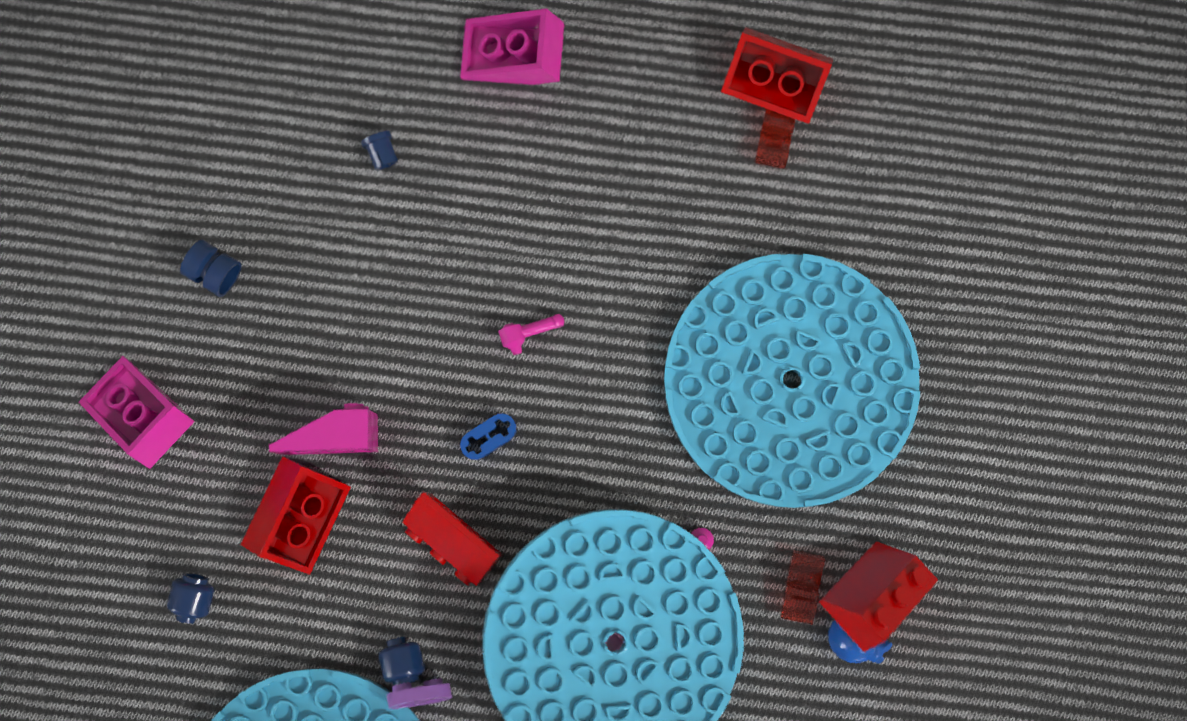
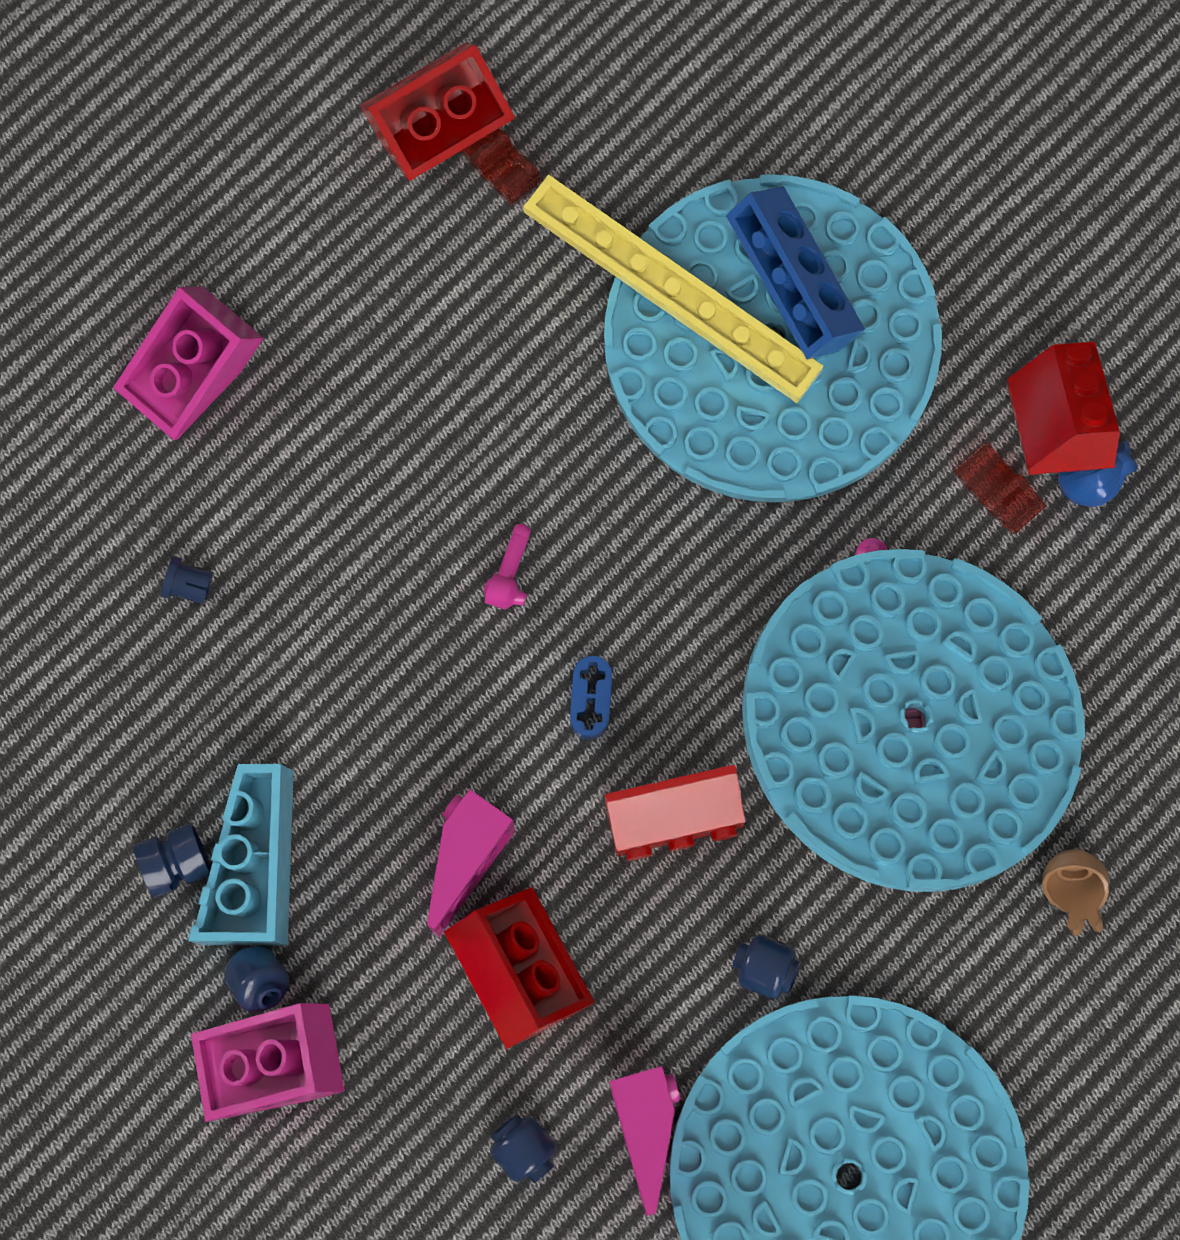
camera: 55 degrees left, 5 degrees down
(176, 369) = (256, 978): none -> dark blue head
(240, 315) = (251, 863): none -> medium azure wedge
(257, 654) = (646, 1119): none -> dark pink slope
(431, 692) = (822, 961): medium lavender plate -> none
(772, 298) = (673, 288): none -> light yellow plate
(838, 364) = (795, 272): none -> blue brick

